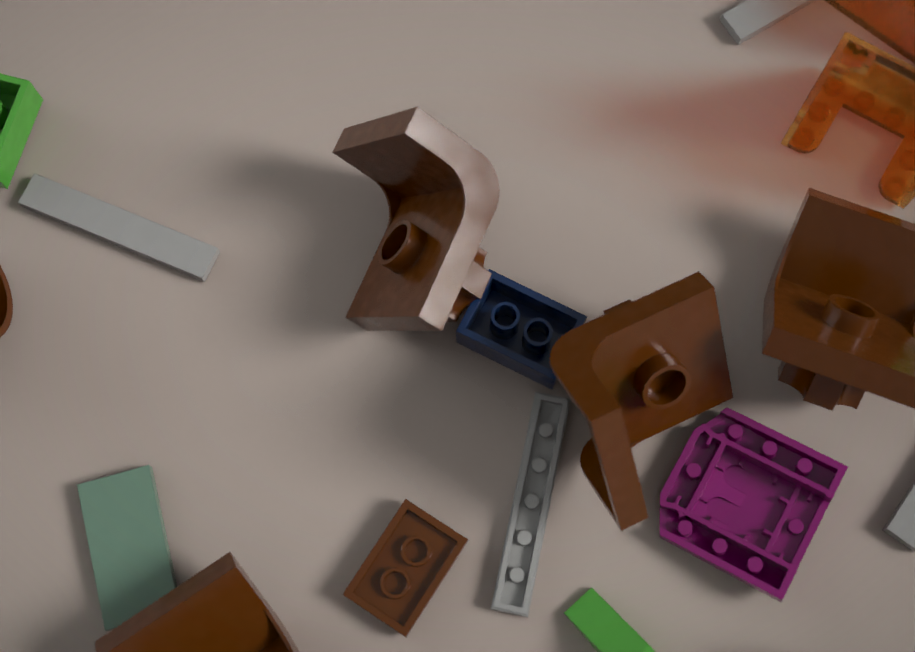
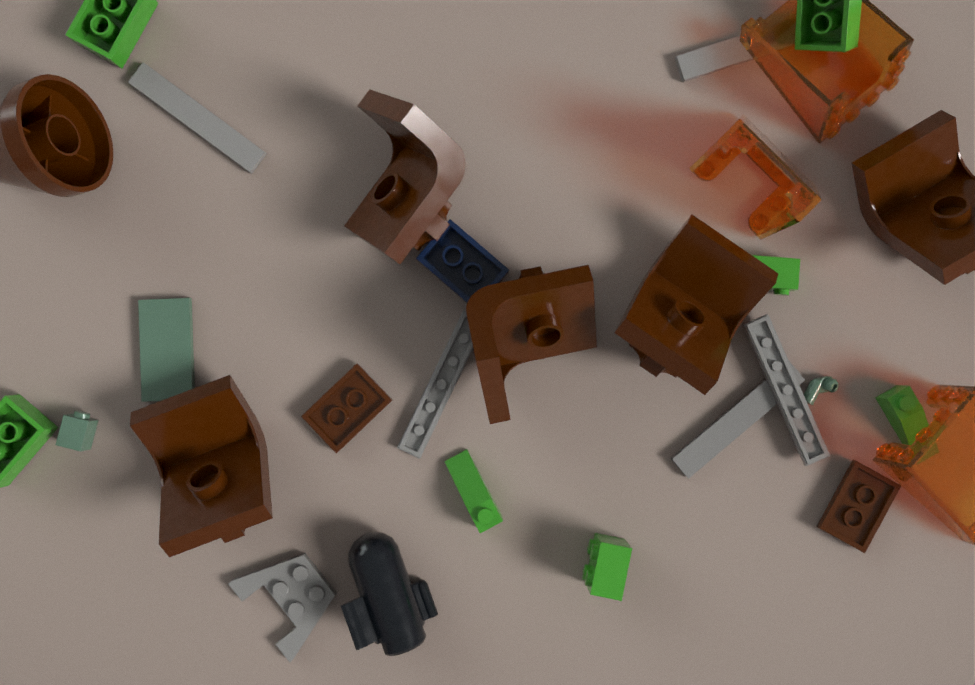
camera: 10 degrees right, 15 degrees up
(747, 500) = (584, 418): magenta wedge -> none

